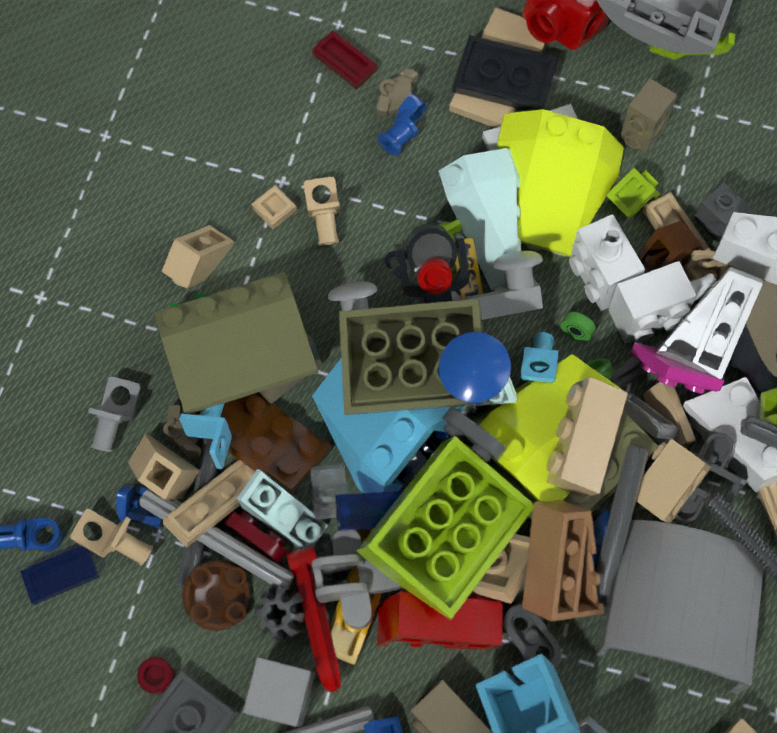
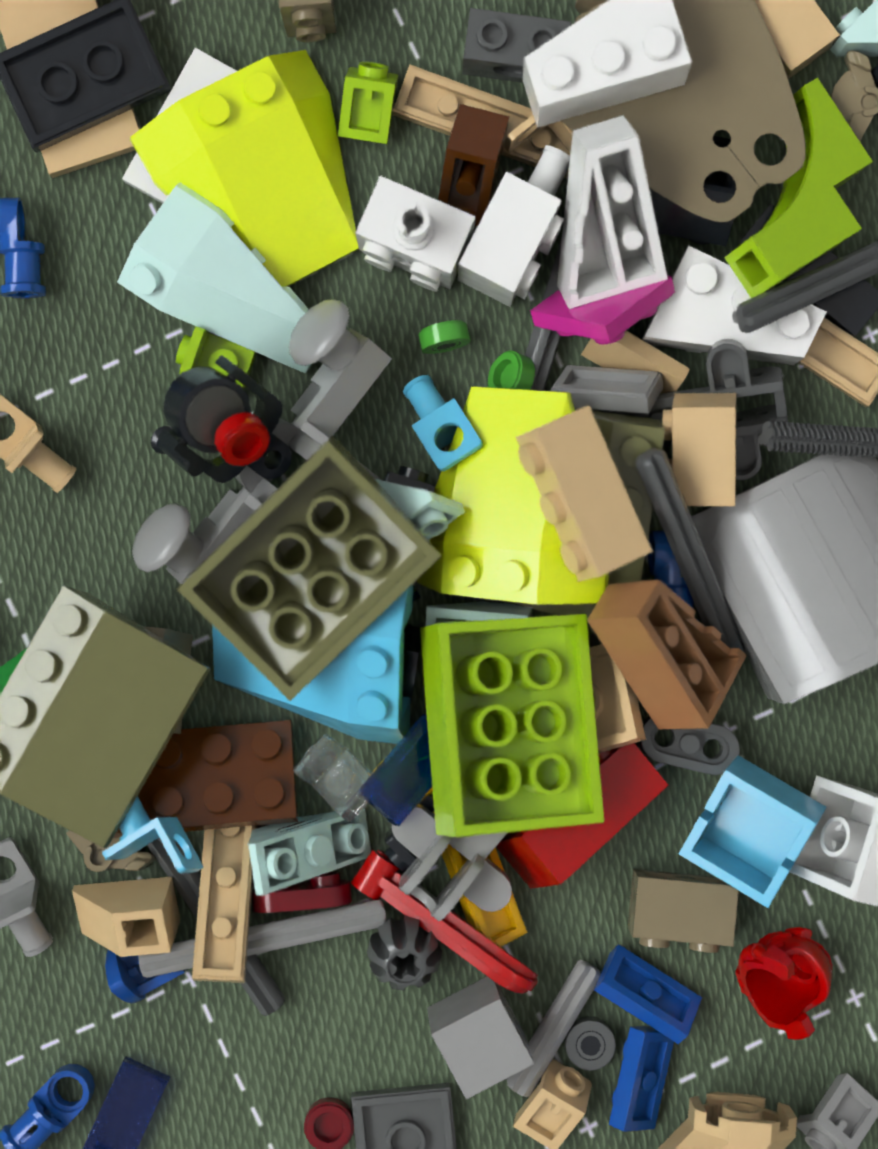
camera: 45 degrees left, 20 degrees up
(113, 538) = (148, 1031): tan bracket -> none
(216, 595) = (317, 991): reddish brown dish -> none
(474, 286) = (261, 371): yellow sticker -> none
(474, 367) = (396, 530): blue dish -> none
(483, 443) = (433, 601): dark grey plate -> none

